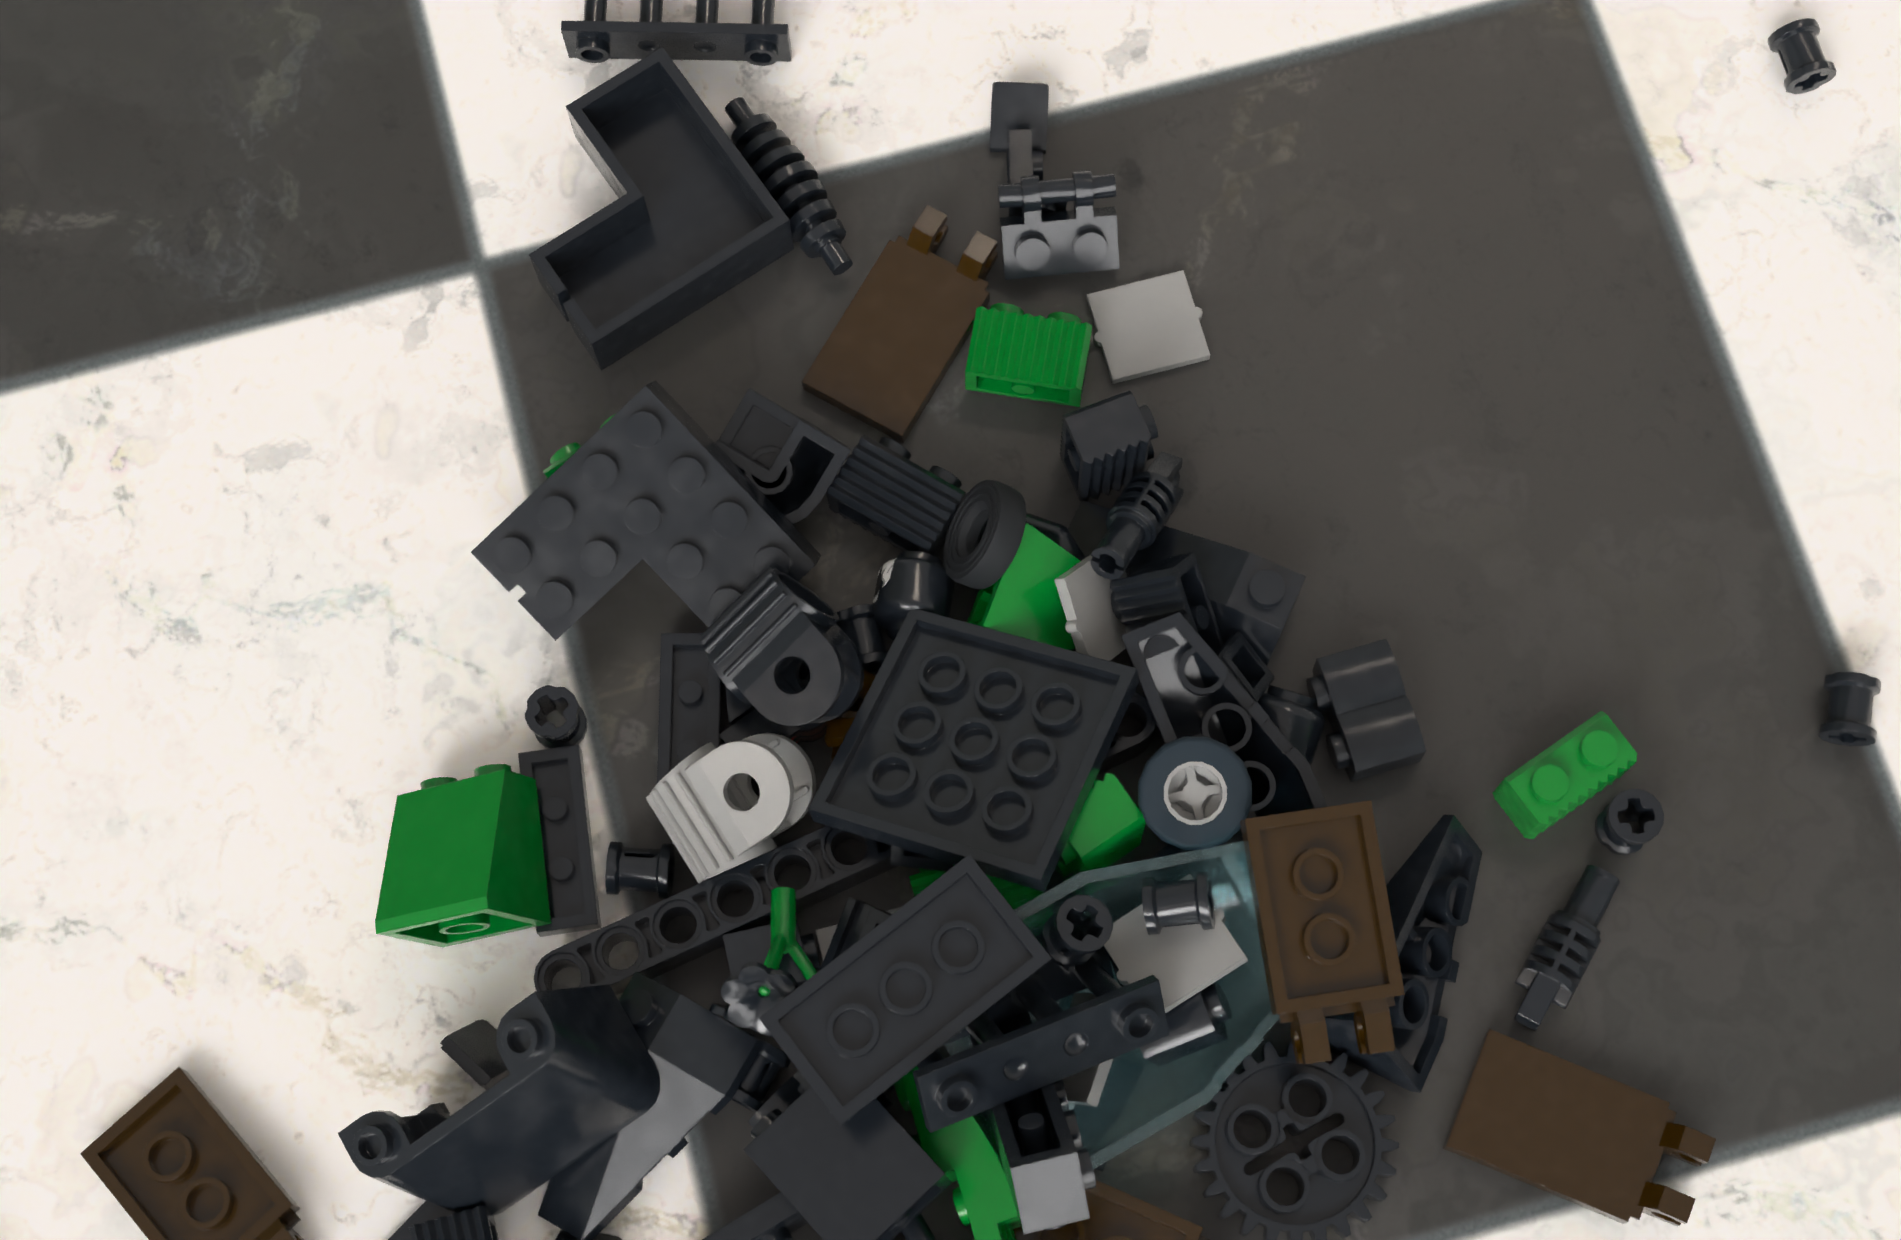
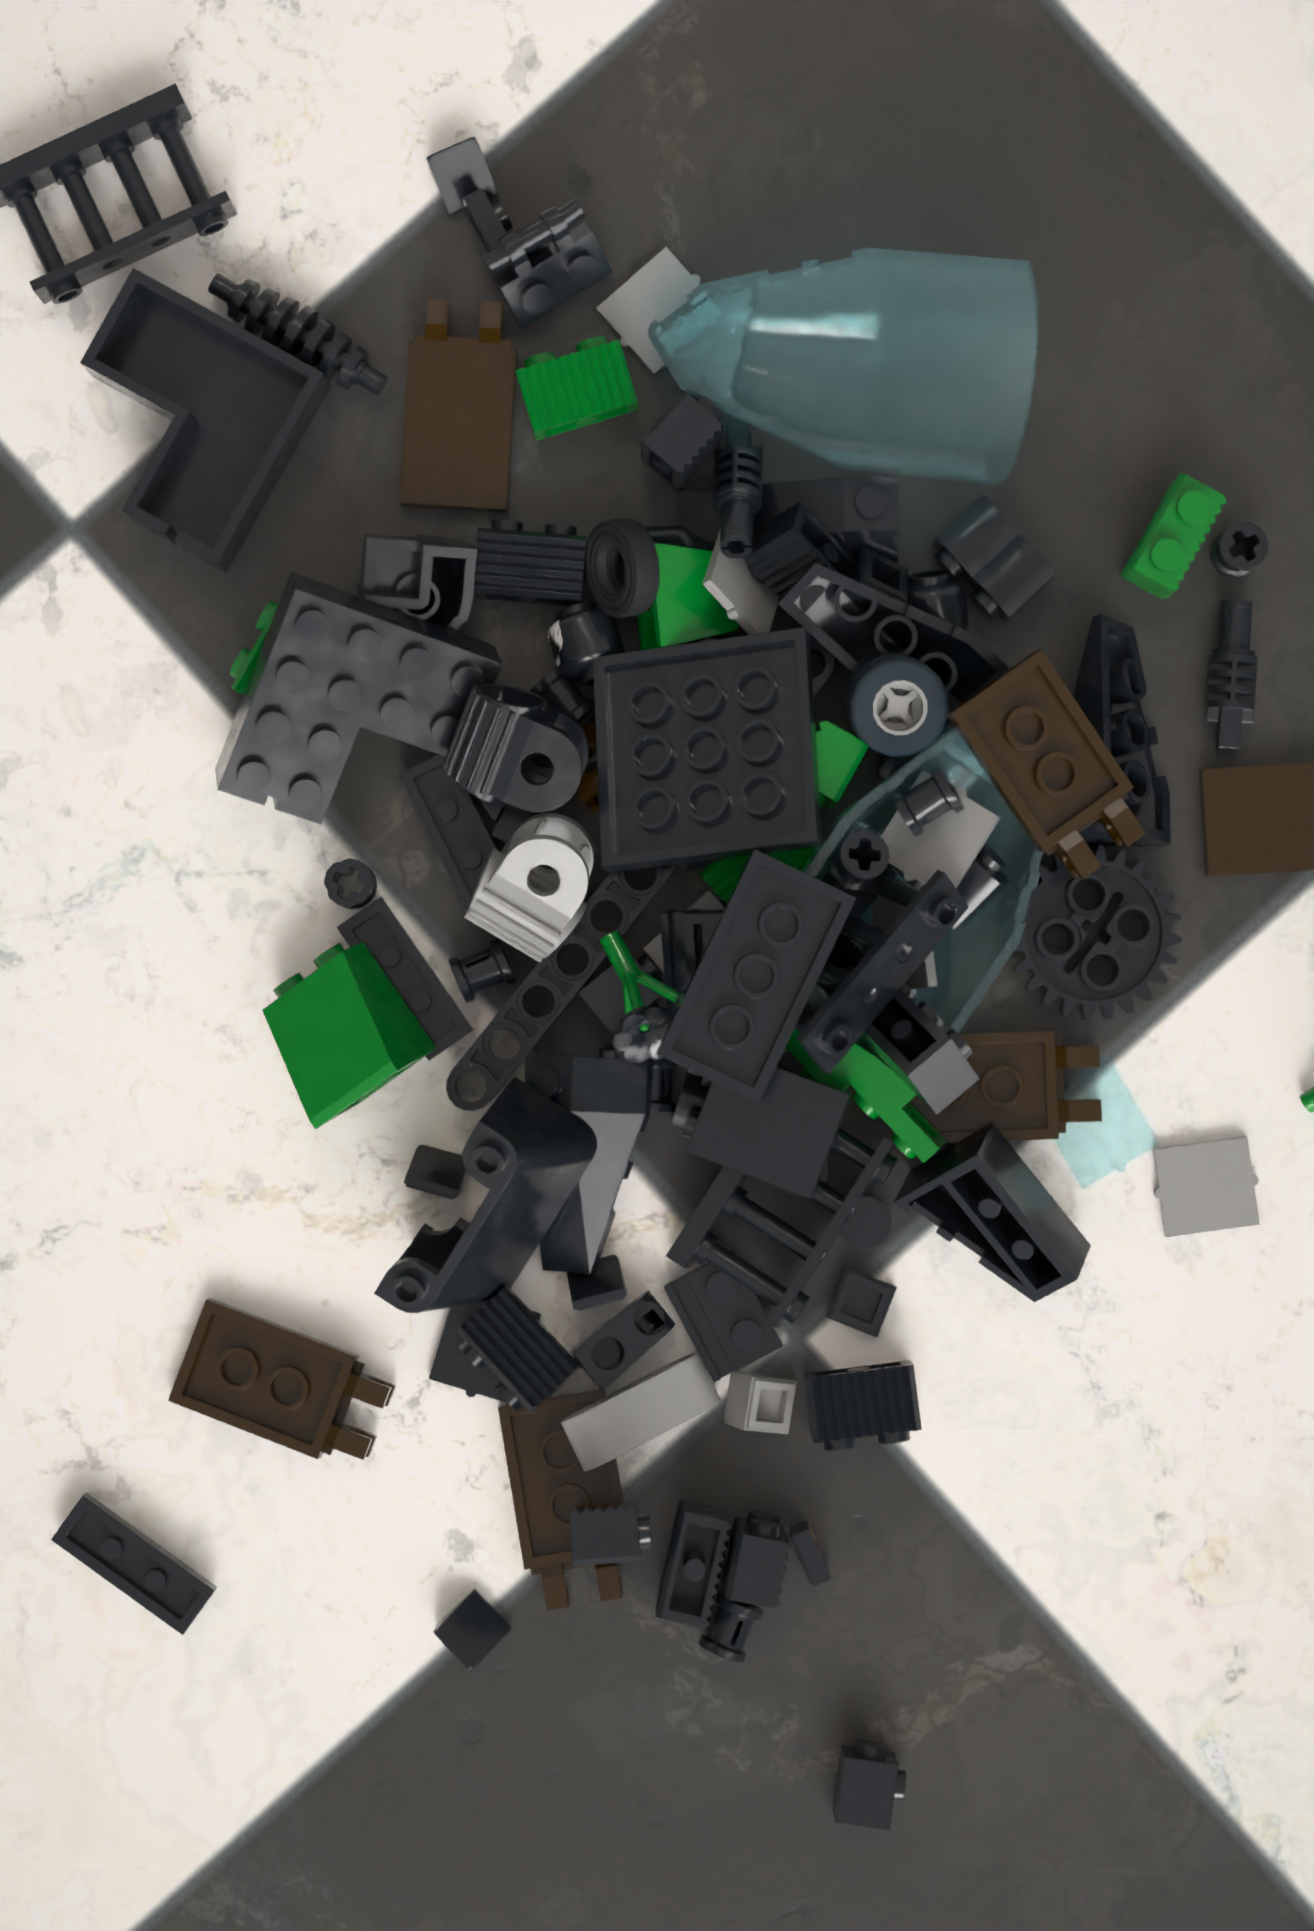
camera: 30 degrees left, 15 degrees up
(1337, 452) = (870, 359): none -> clear light blue windscreen

